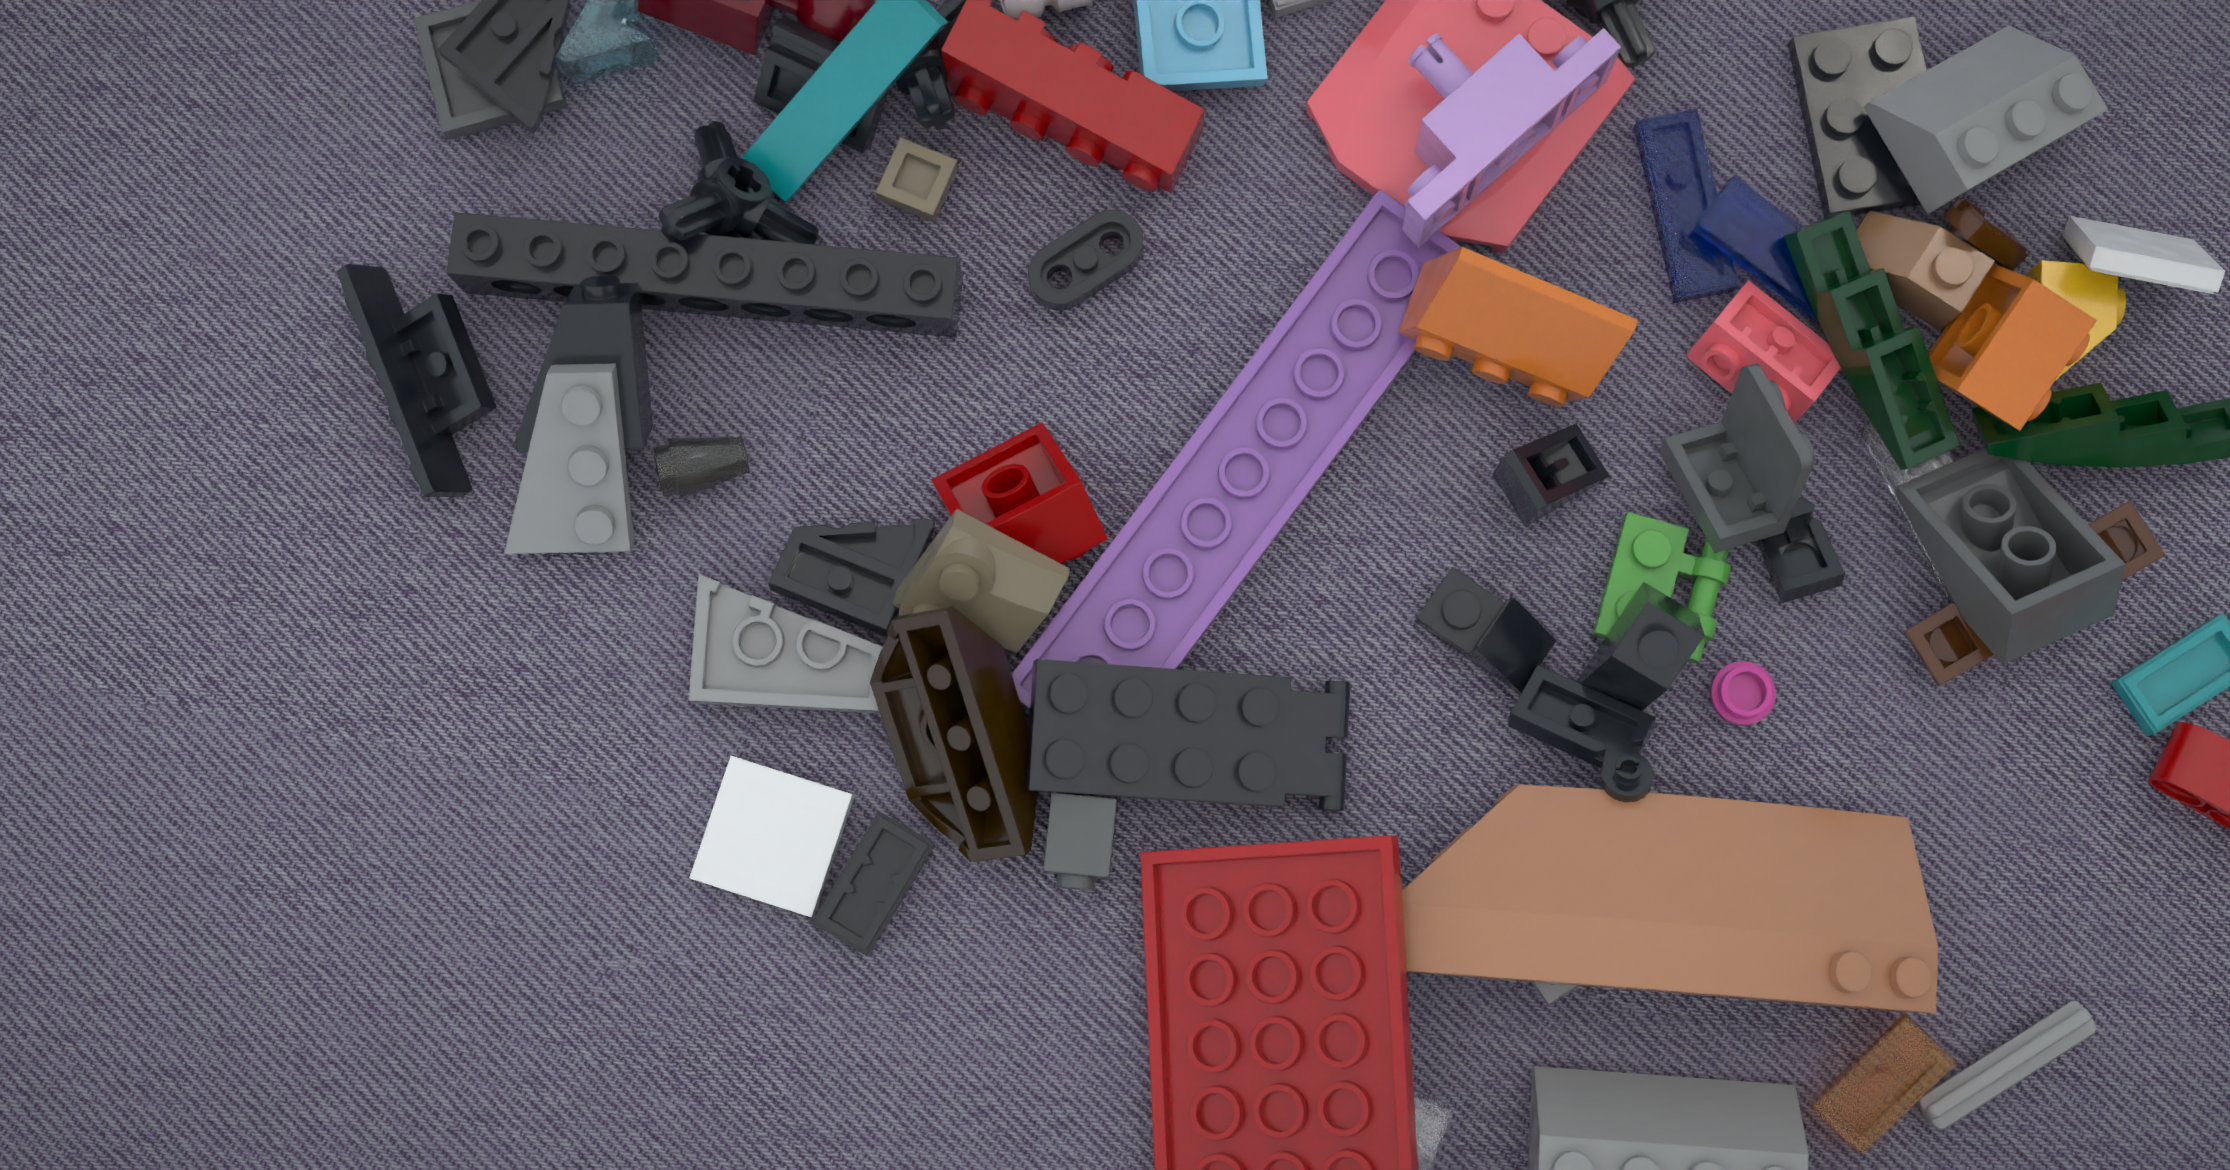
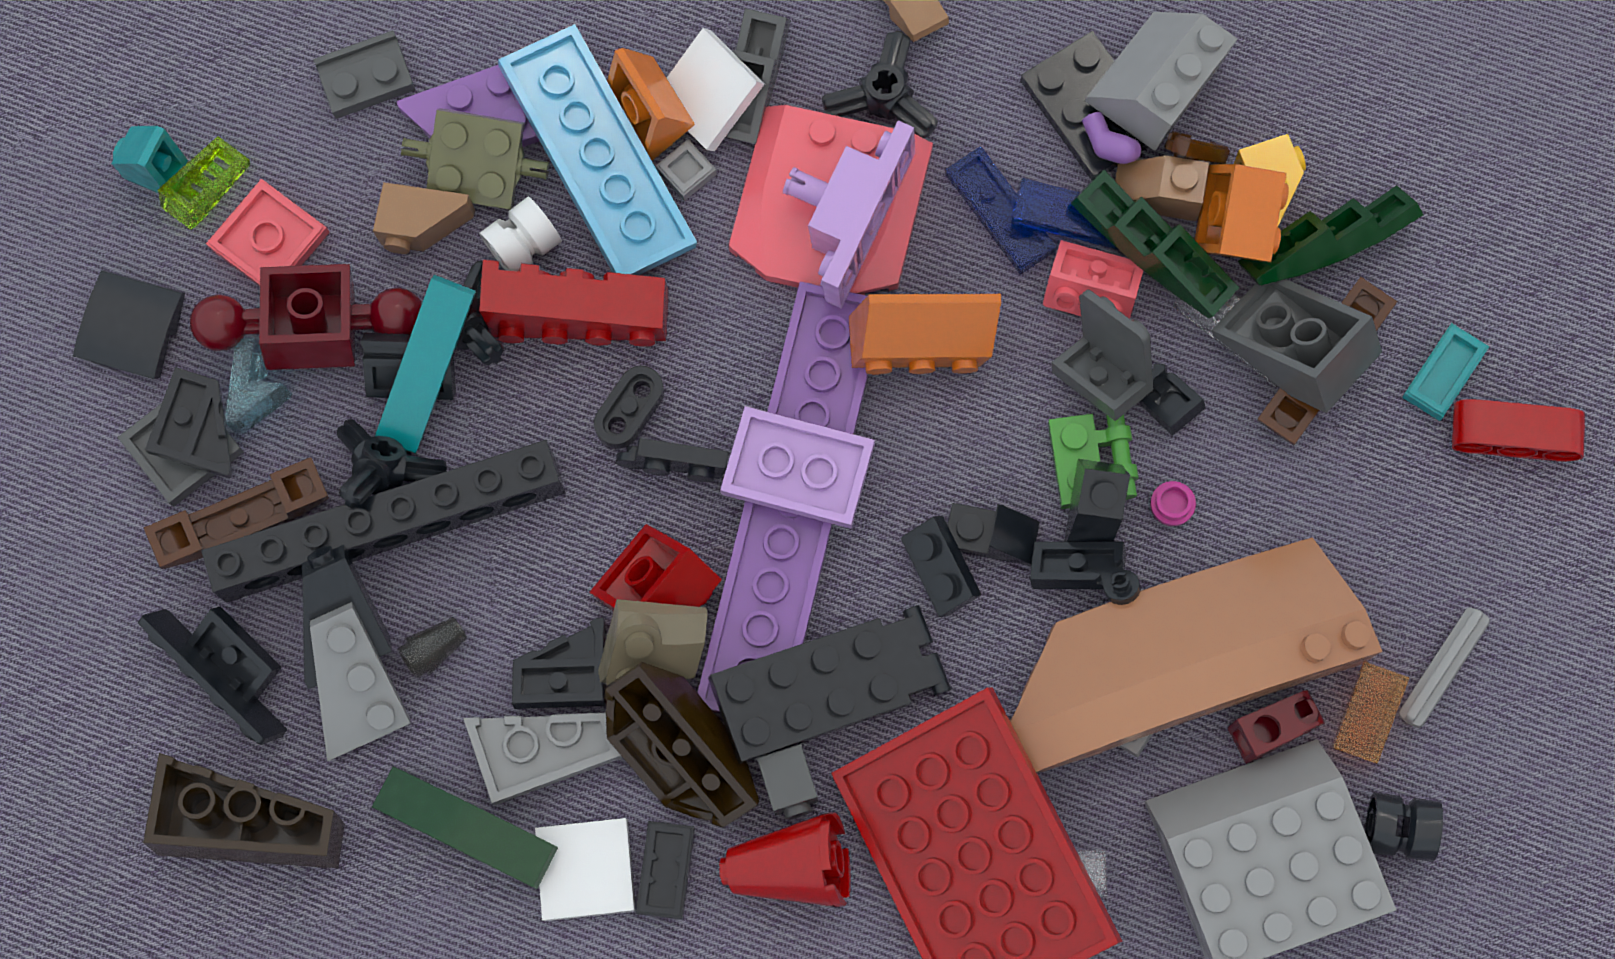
camera: 20 degrees left, 5 degrees down
(342, 572) = (234, 820): none -> dark brown wedge
(550, 189) = (267, 505): none -> reddish brown slope
(641, 717) = (465, 827): none -> dark green slope
(917, 179) = (496, 402): dark tan plate -> none
(1039, 949) = (792, 864): none -> red cone
(1099, 345) = (662, 457): none -> black hinge
(1270, 434) = (797, 467): none -> lavender plate
(1401, 644) = (941, 566): none -> black plate
(1549, 473) = (987, 416): black slope -> none
(1748, 1046) = (1275, 726): none -> dark red leg
(1870, 179) = (1108, 144): none -> medium lavender arm
(2143, 255) = (1300, 120): white tile -> none

